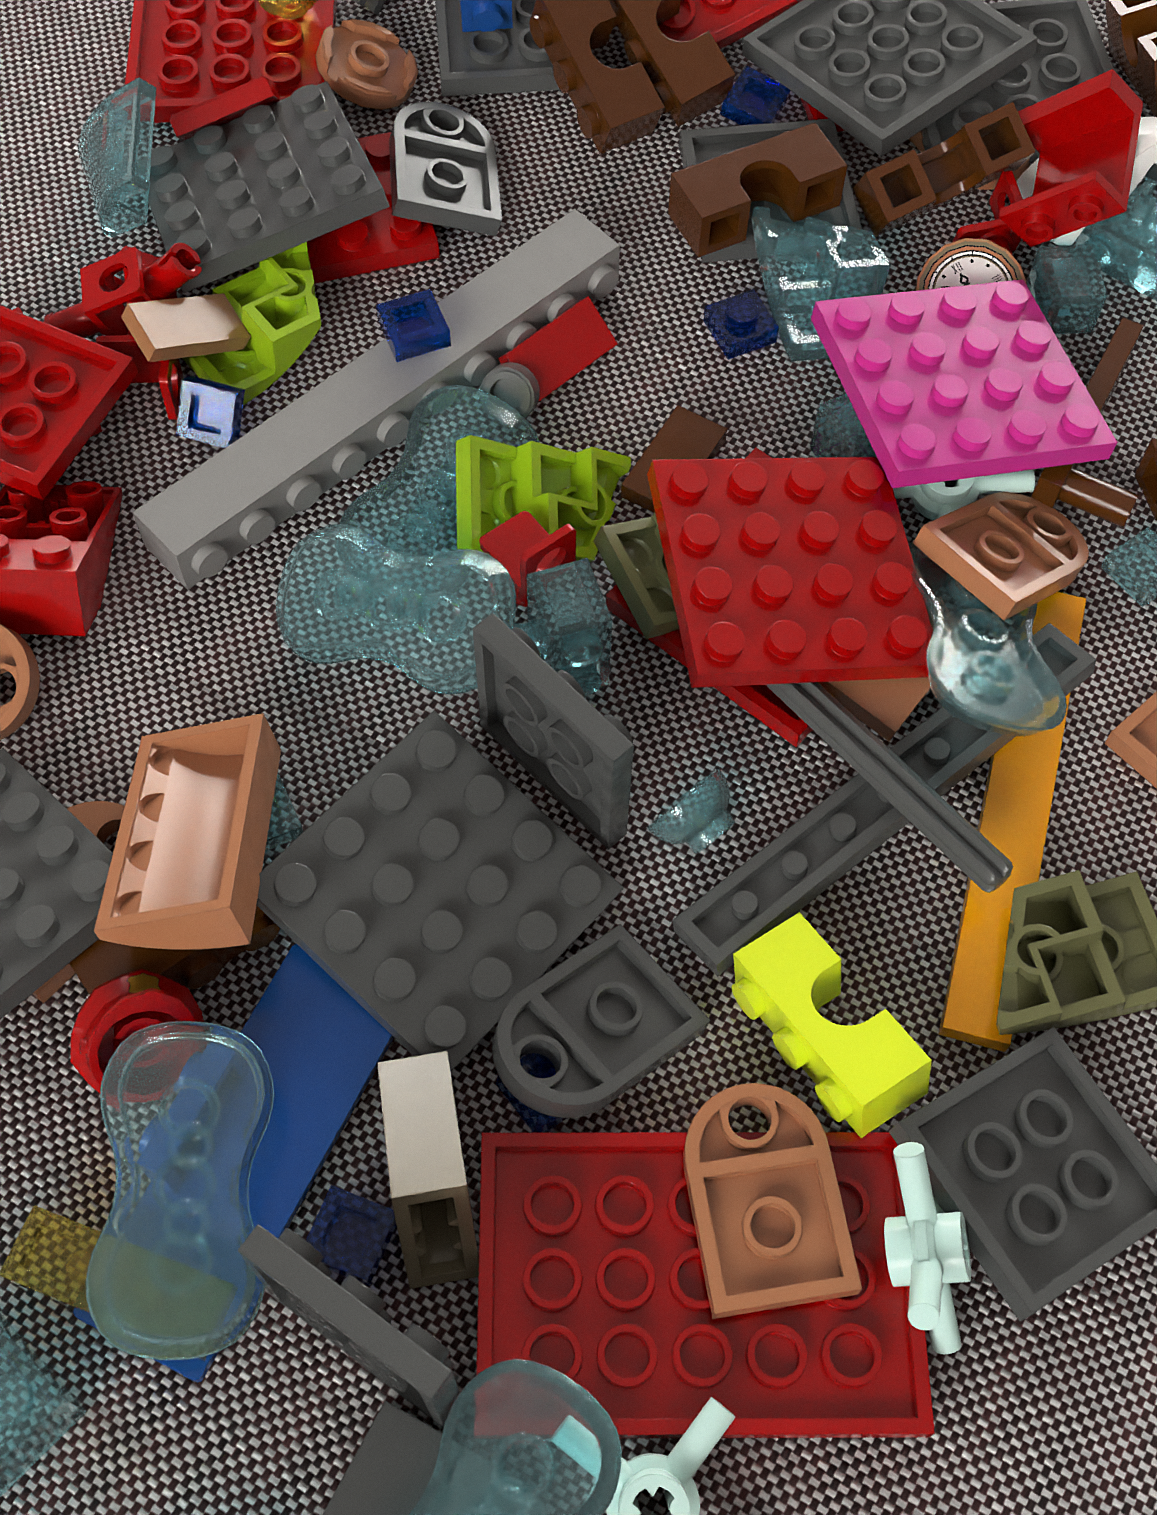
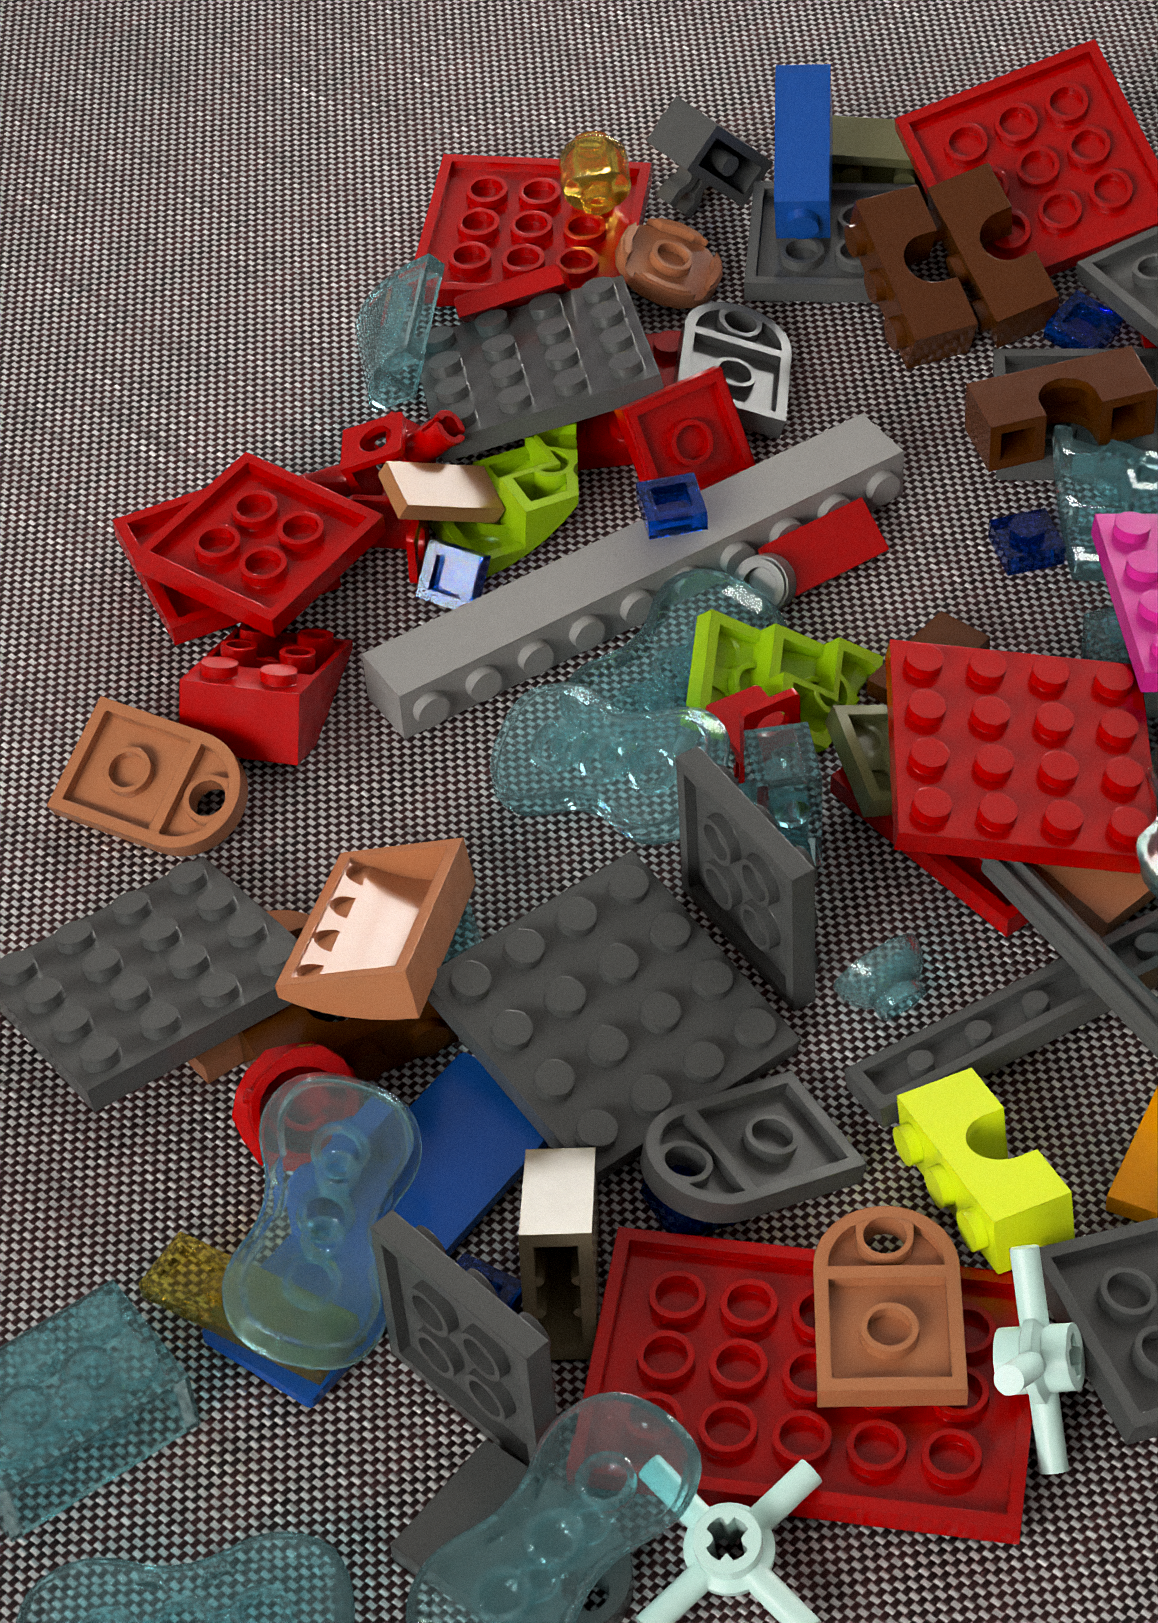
camera: 15 degrees right, 15 degrees down
(414, 244) = (687, 431): none -> red tile

